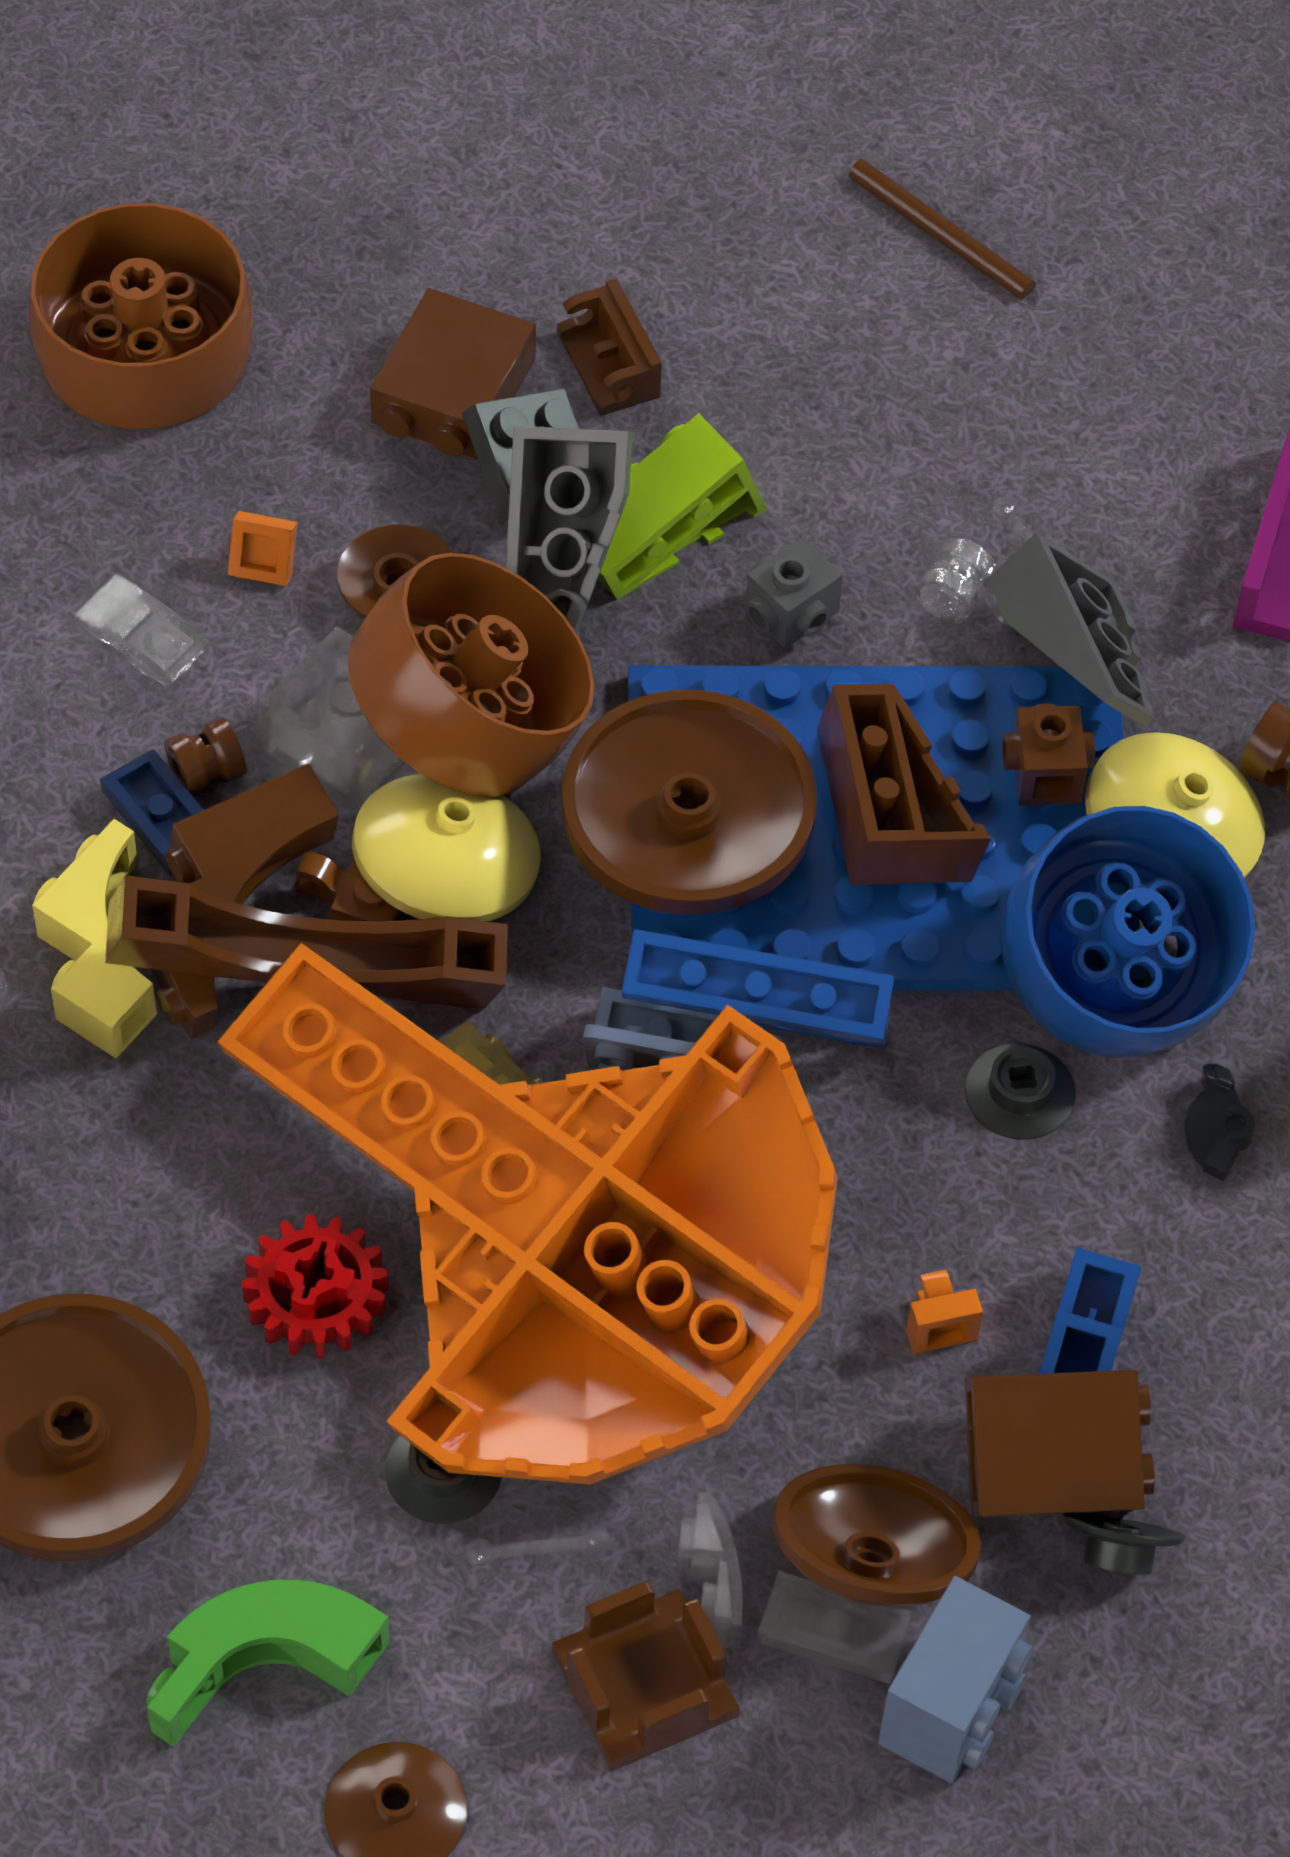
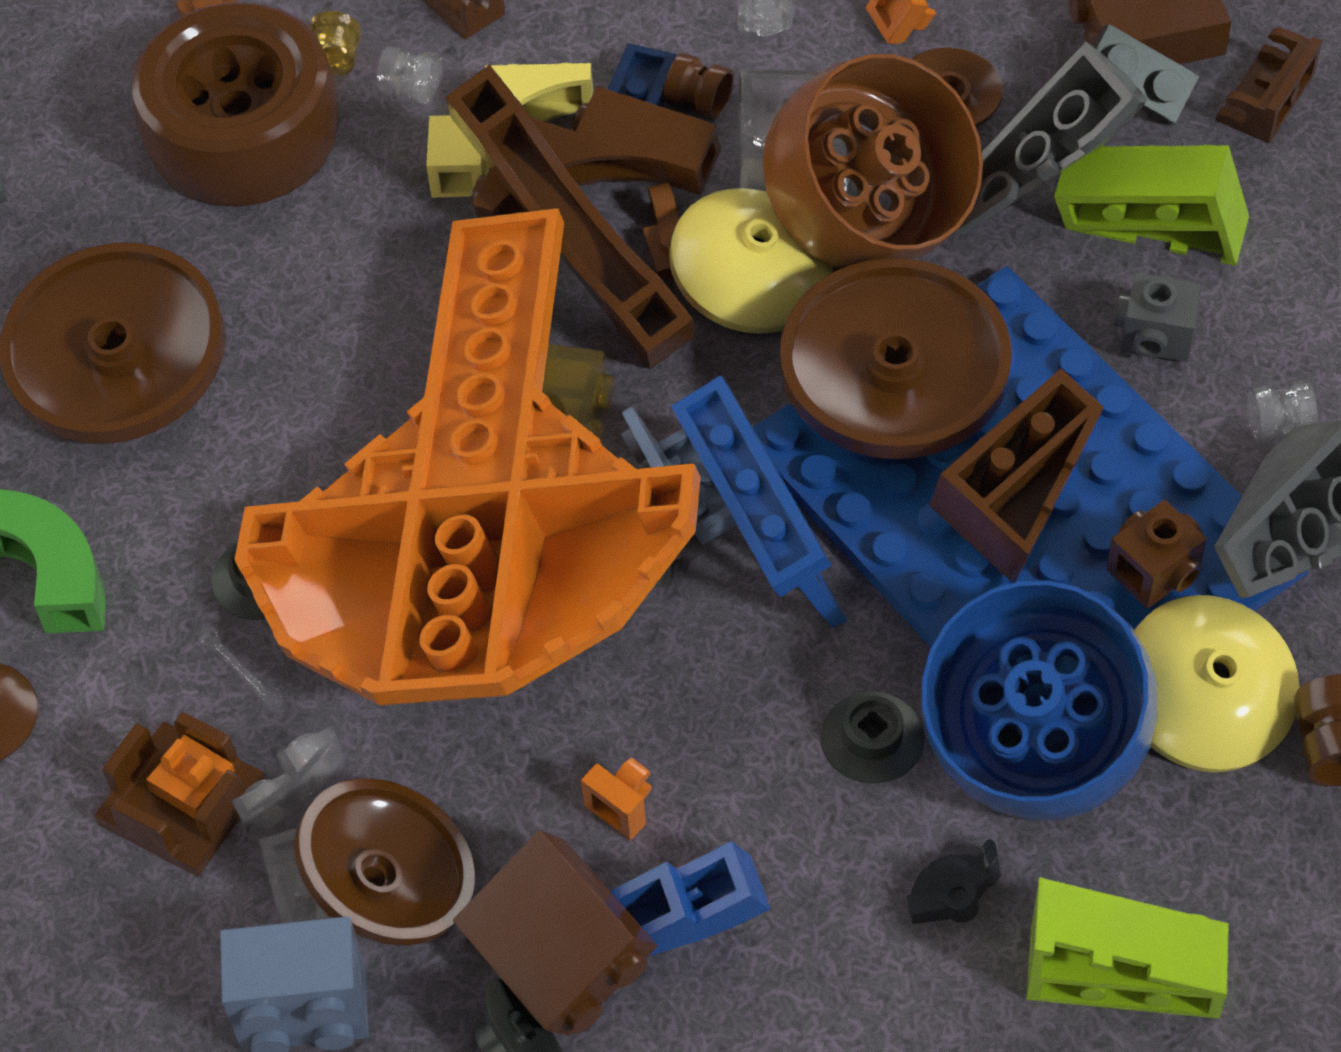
camera: 60 degrees right, 0 degrees up
(334, 1305) = (333, 407): red gear -> none
(646, 1649) = (187, 775): none -> orange tile

